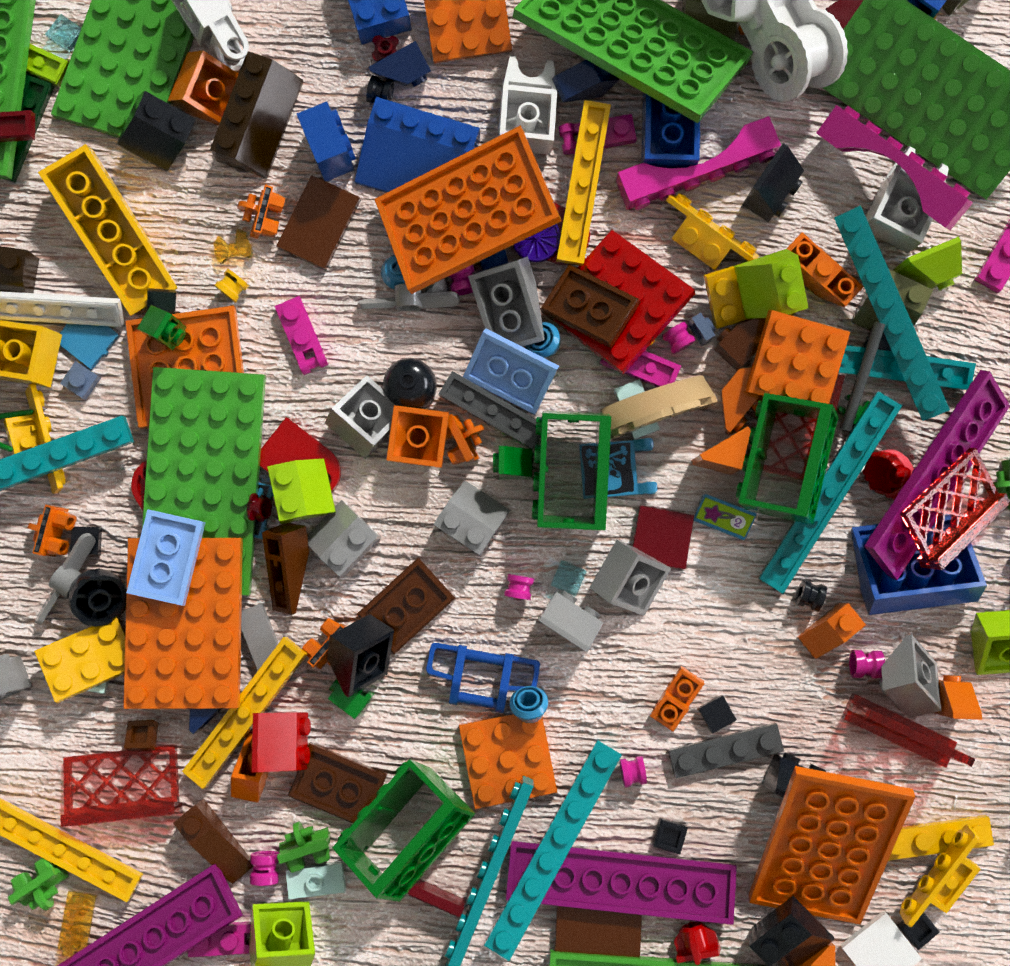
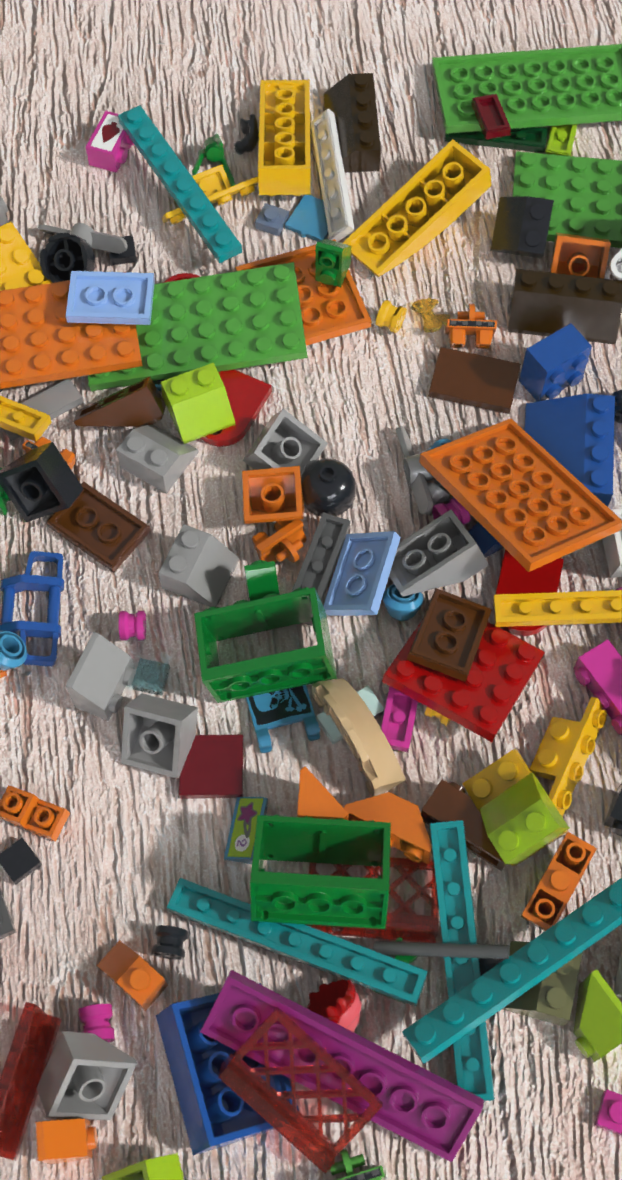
camera: 80 degrees right, 20 degrees down
(50, 529) = (125, 219): orange hips -> none
(64, 33) = (596, 148): clear light blue tile -> none
(162, 299) = (361, 263): black tile -> none
(259, 507) = (168, 368): dark red plate -> none
(301, 334) = (357, 385): dark pink plate -> none
(539, 246) = (508, 576): dark purple wheel -> none
(679, 337) = (440, 742): dark pink wheel -> none
(702, 328) = (457, 765): sand blue plate -> none
(797, 358) = (439, 864): orange plate -> none

